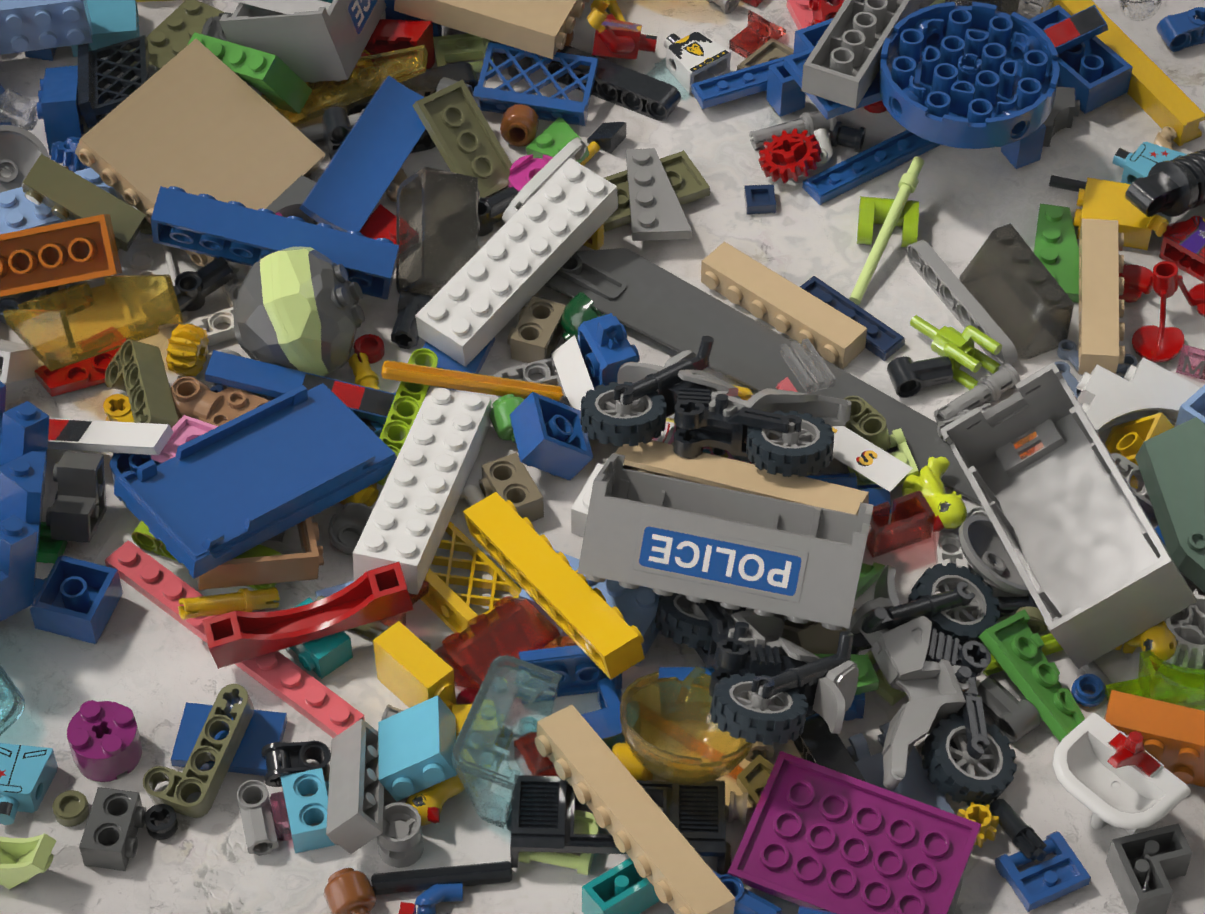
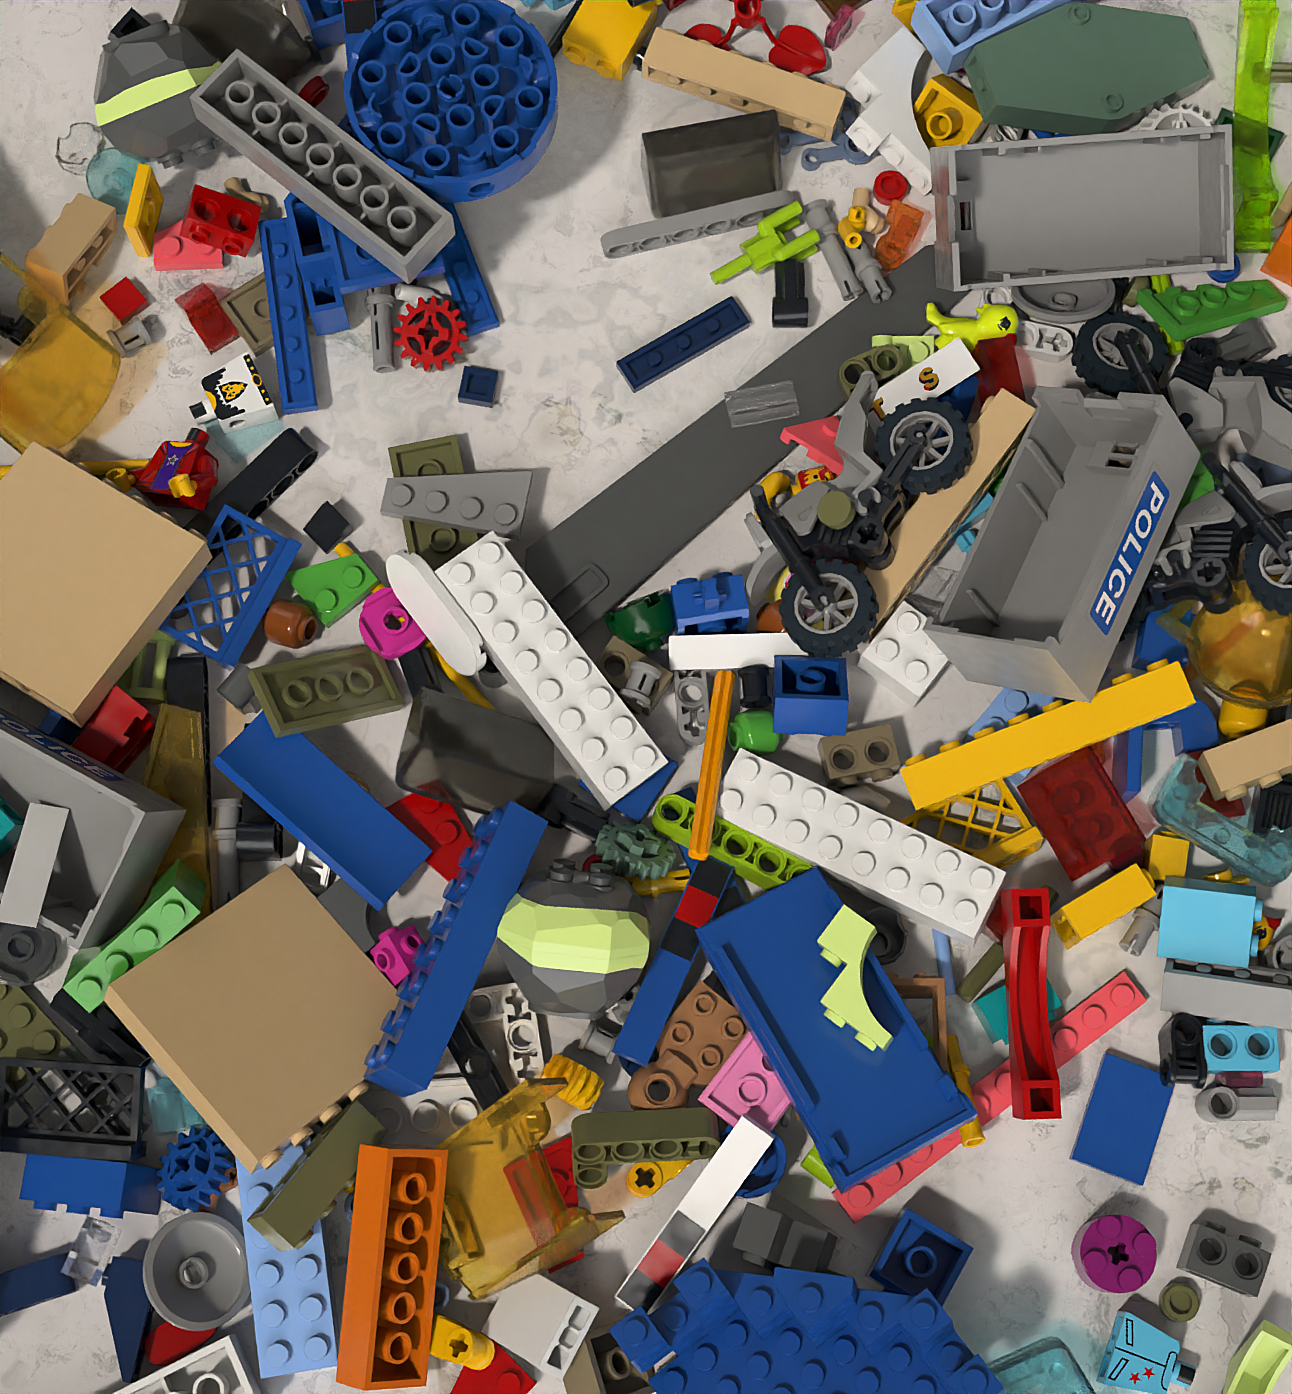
camera: 80 degrees left, 25 degrees up
(160, 812) = (1226, 1206): black bush -> none
(205, 750) = (1156, 1141): olive beam -> none
(276, 462) = (847, 943): none -> yellowish green arch
(387, 346) = (634, 850): none -> sand green gear
(525, 320) = (648, 675): none -> light grey bush
(704, 385) = (836, 510): none -> olive tile
(783, 304) = (656, 406): tan brick -> none
(875, 211) = (538, 269): lime connector -> none
(906, 186) = (529, 221): yellowish green bar -> none
(992, 395) = (852, 225): none -> yellow arm
(1058, 247) = (638, 104): bright green wing -> none

